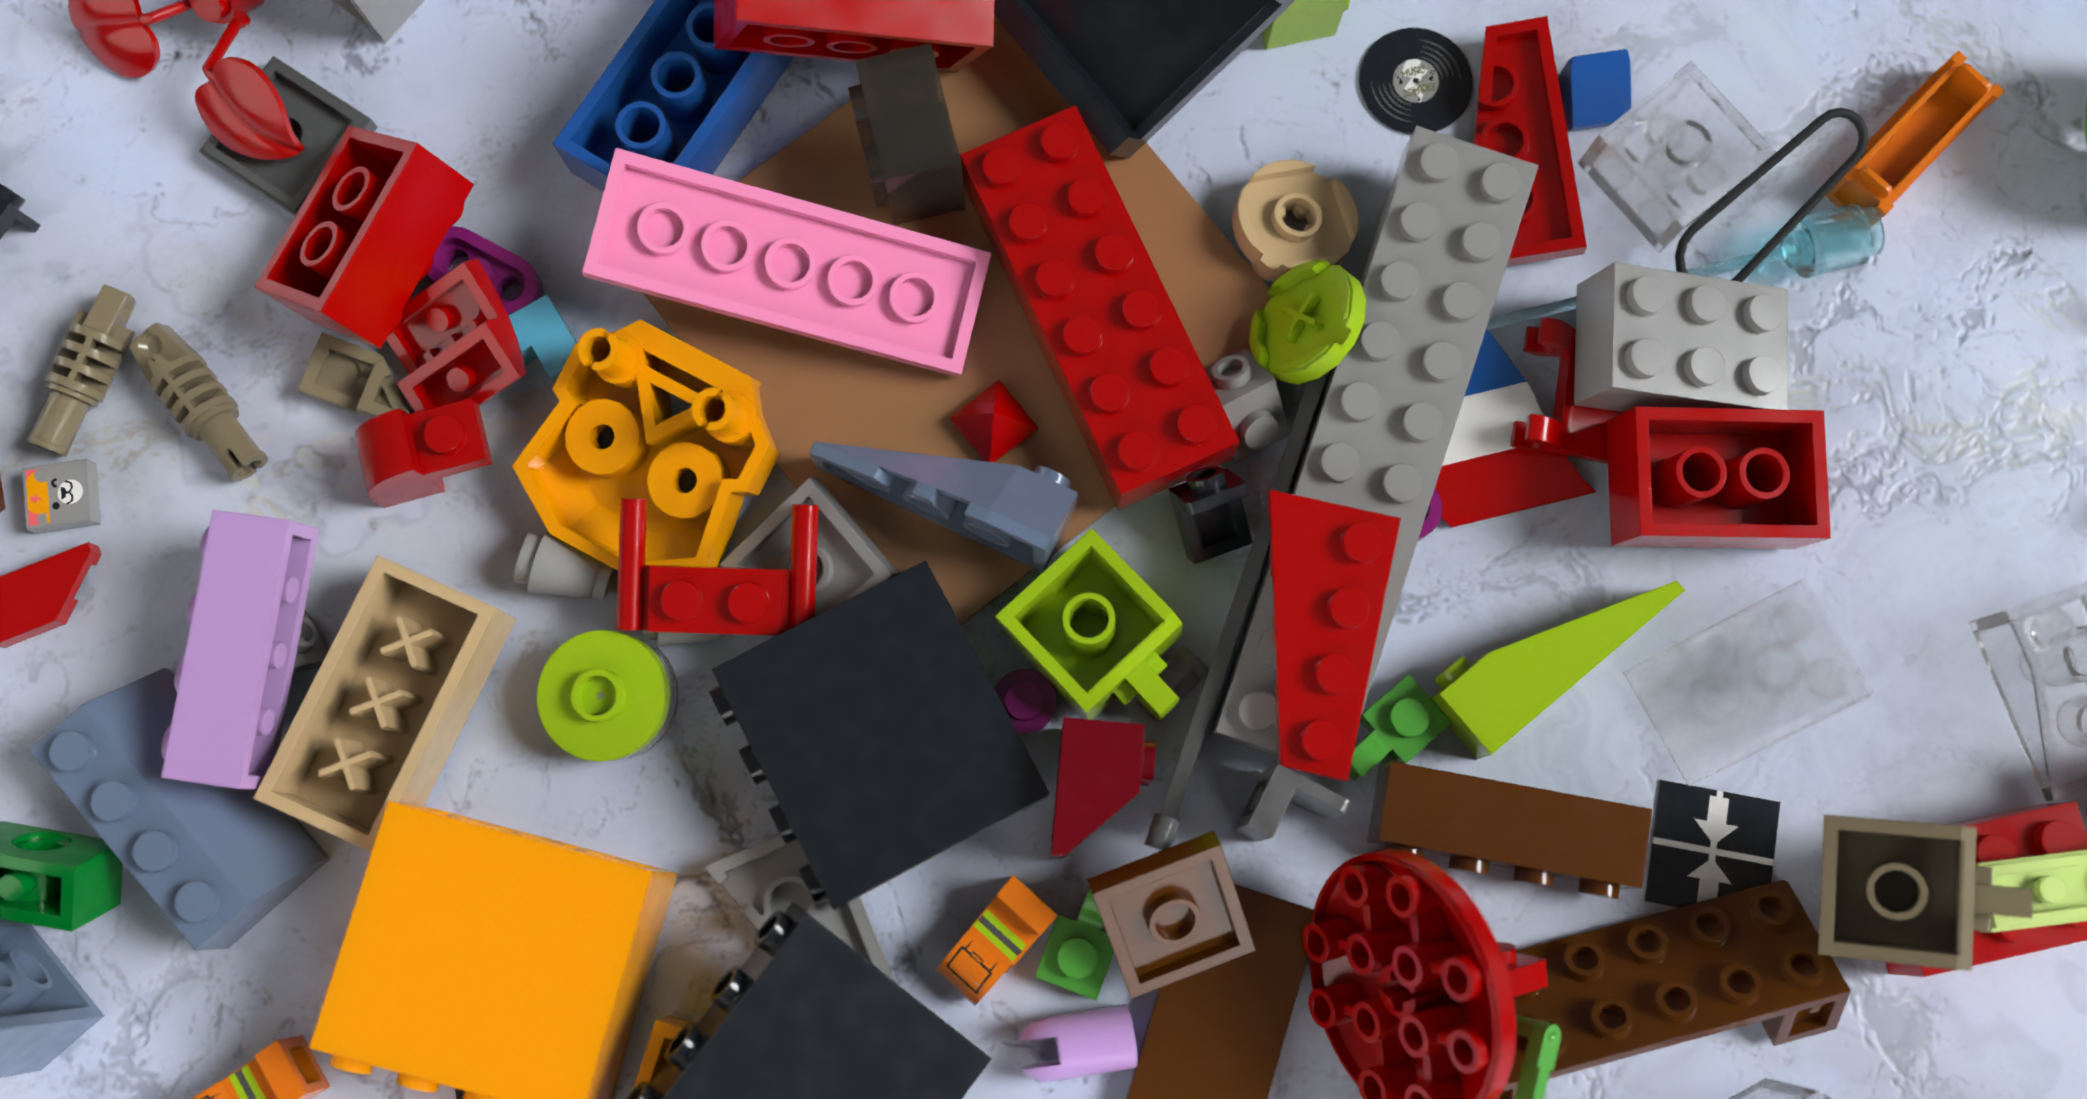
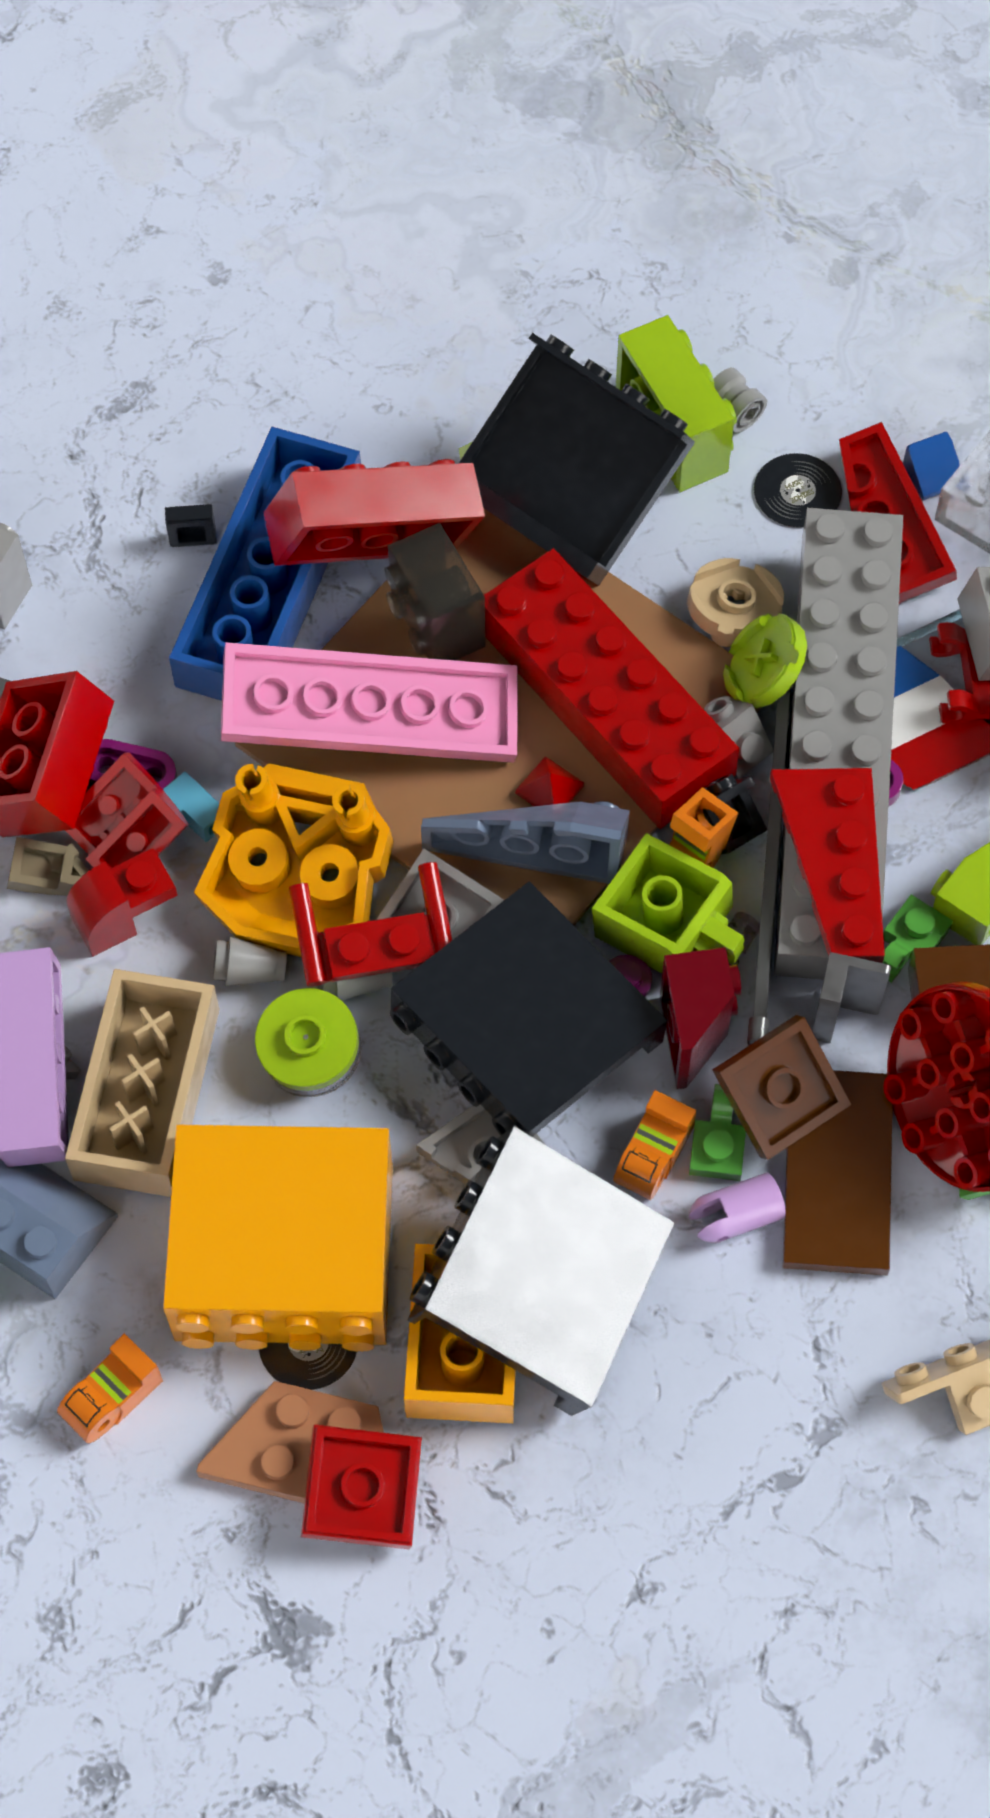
camera: 10 degrees left, 15 degrees down
(1156, 543) = (695, 834): none -> orange leg

